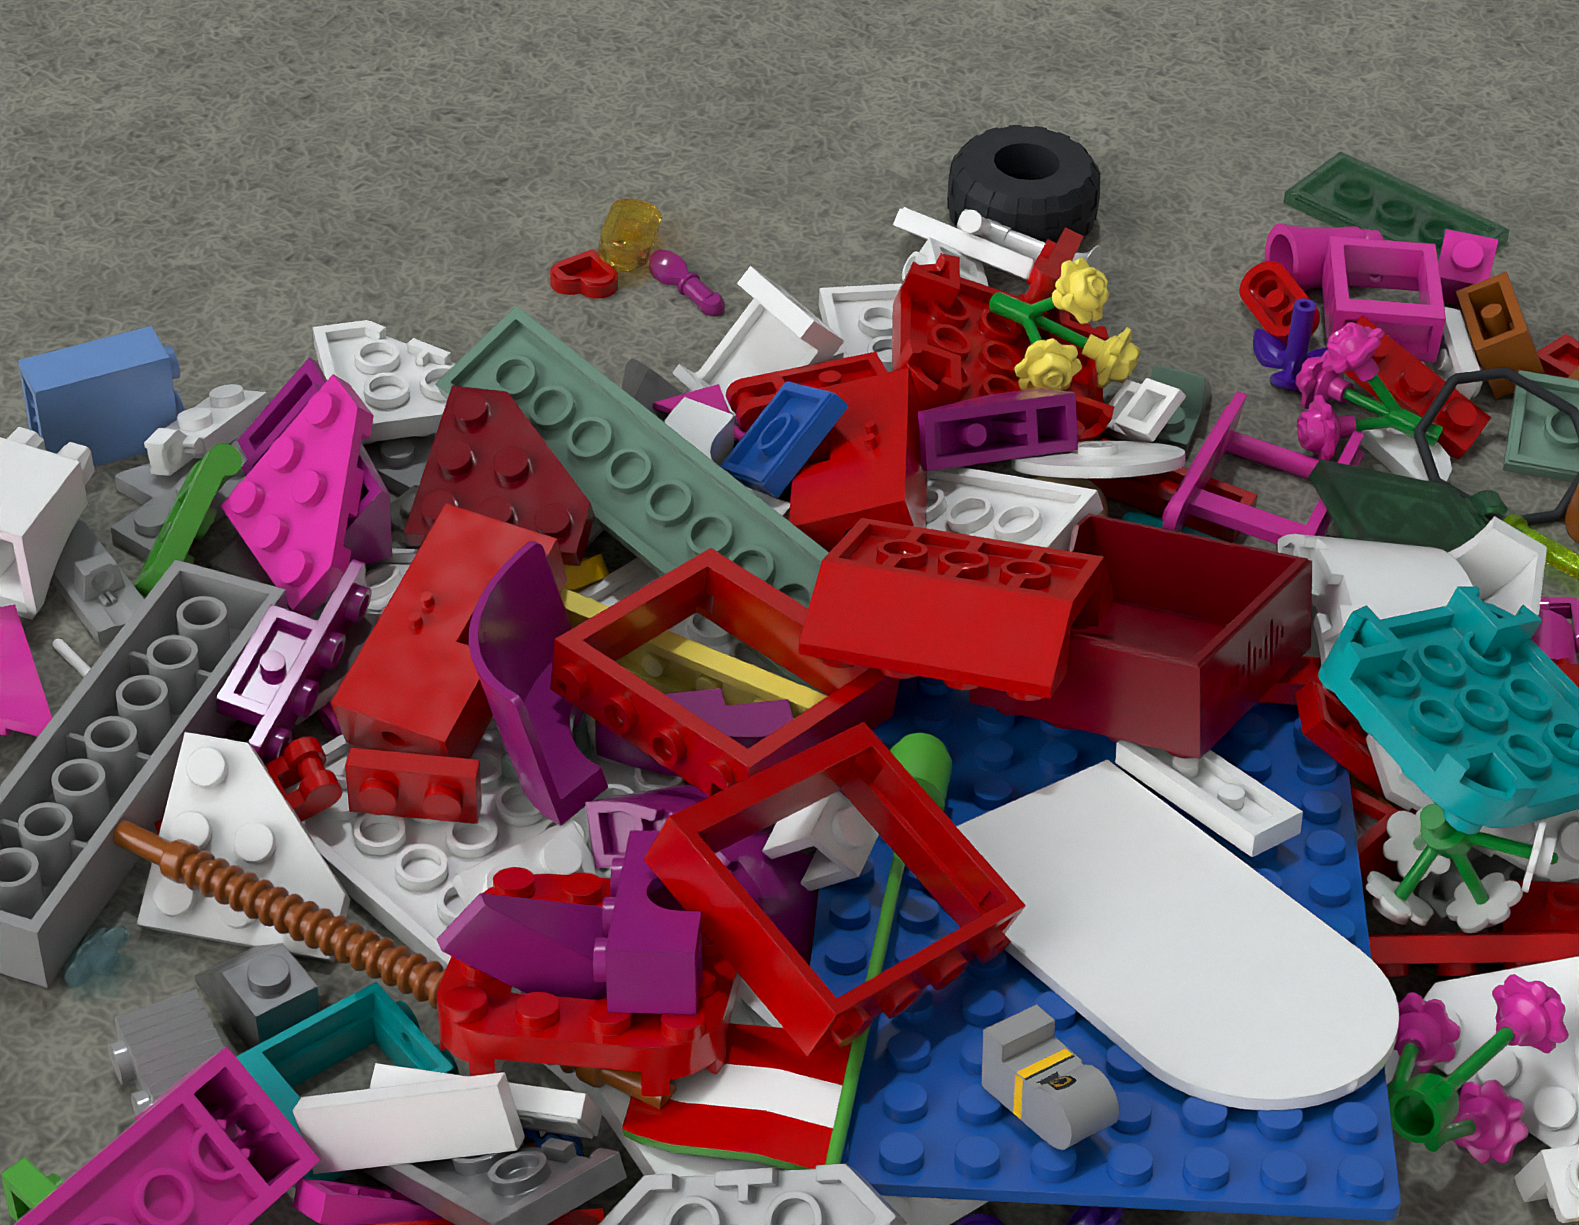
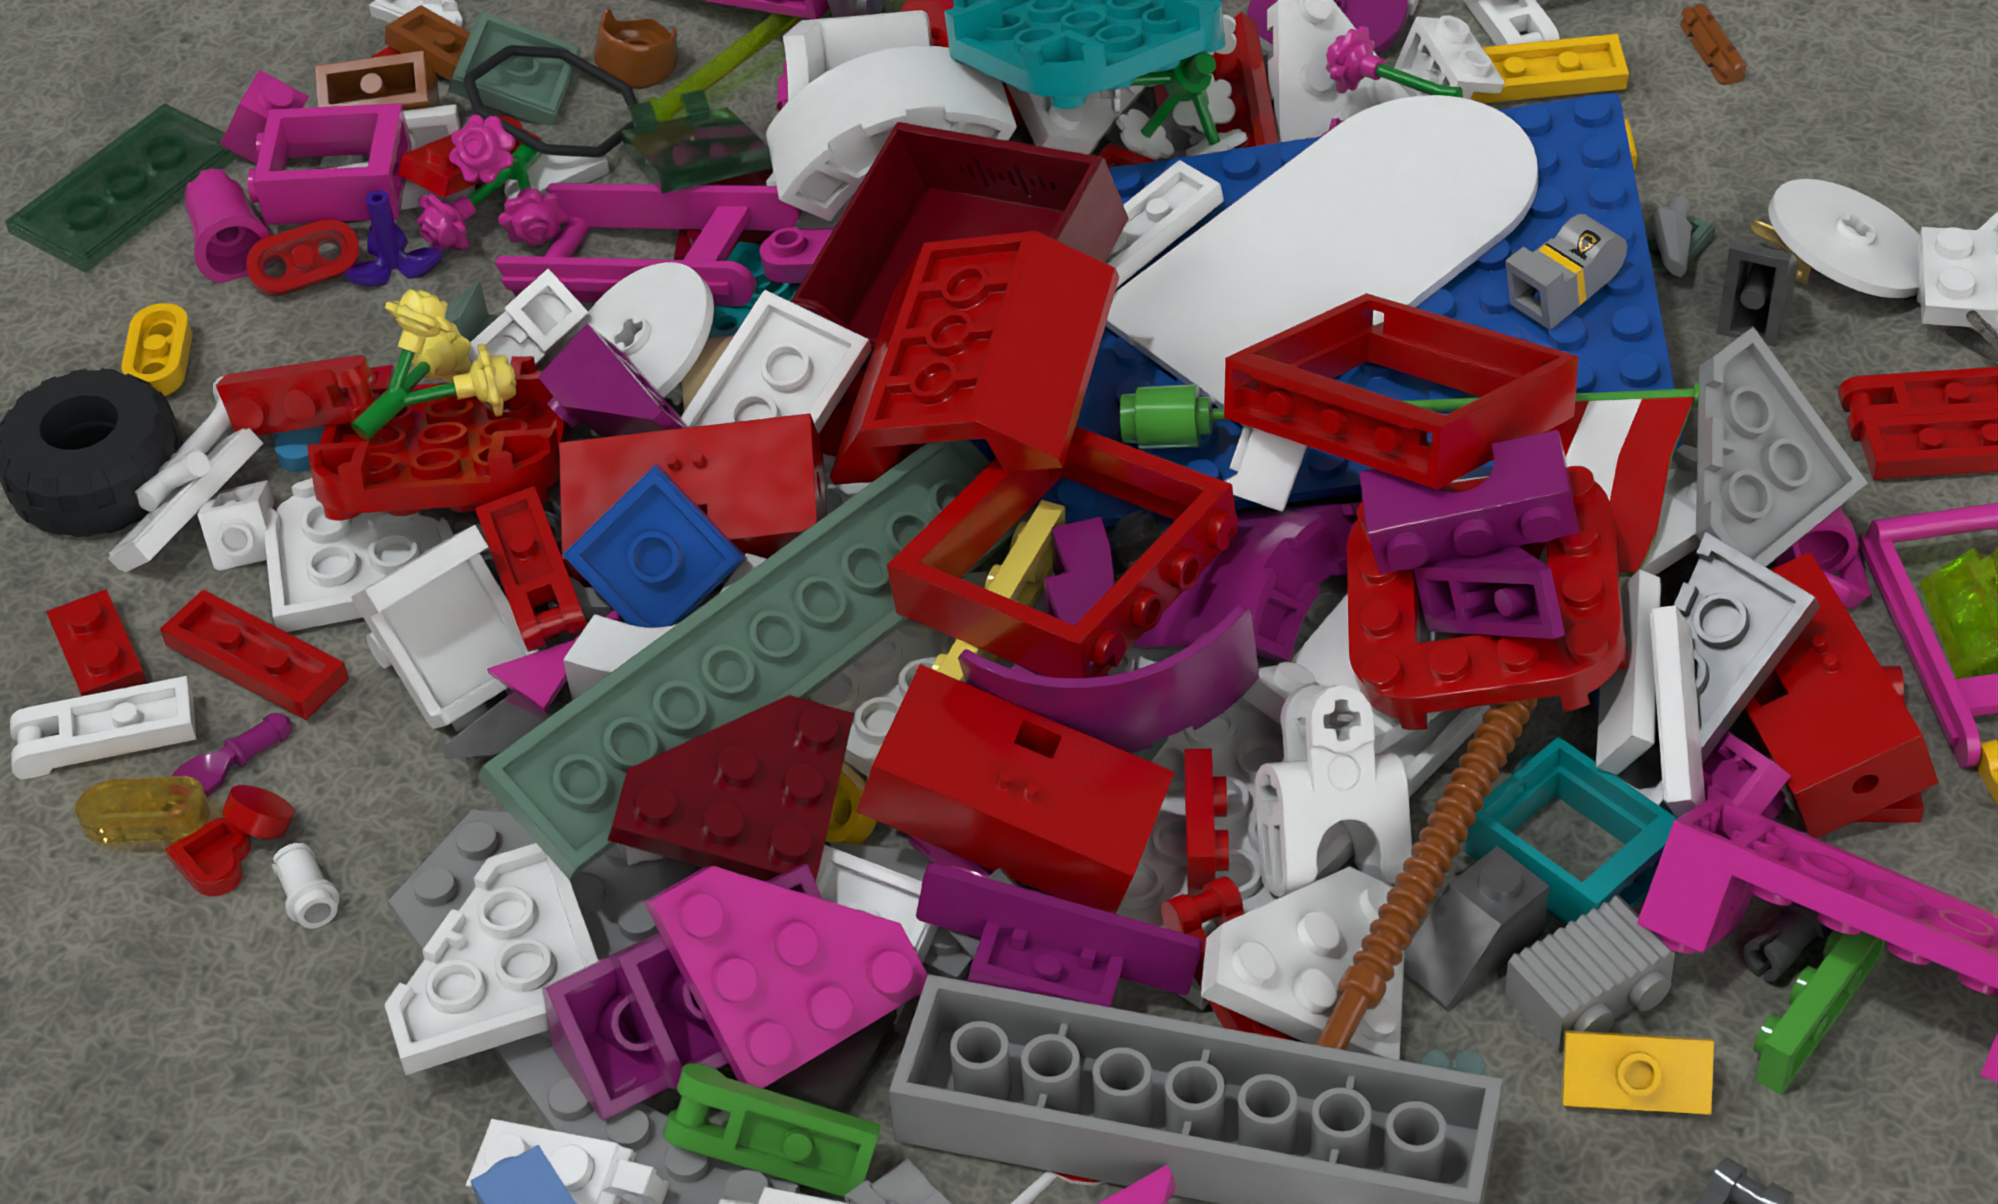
camera: 90 degrees left, 5 degrees up
(57, 1086) = (1637, 1072): none -> yellow plate
(406, 846) = (1328, 780): none -> white piece
(548, 311) = (305, 886): none -> white pin
(614, 287) = (257, 812): none -> red tile
(727, 220) = (101, 726): none -> white plate
(801, 273) = (254, 654): none -> red plate
(819, 216) = (96, 645): none -> red plate
(1163, 231) = (153, 355): none -> yellow plate

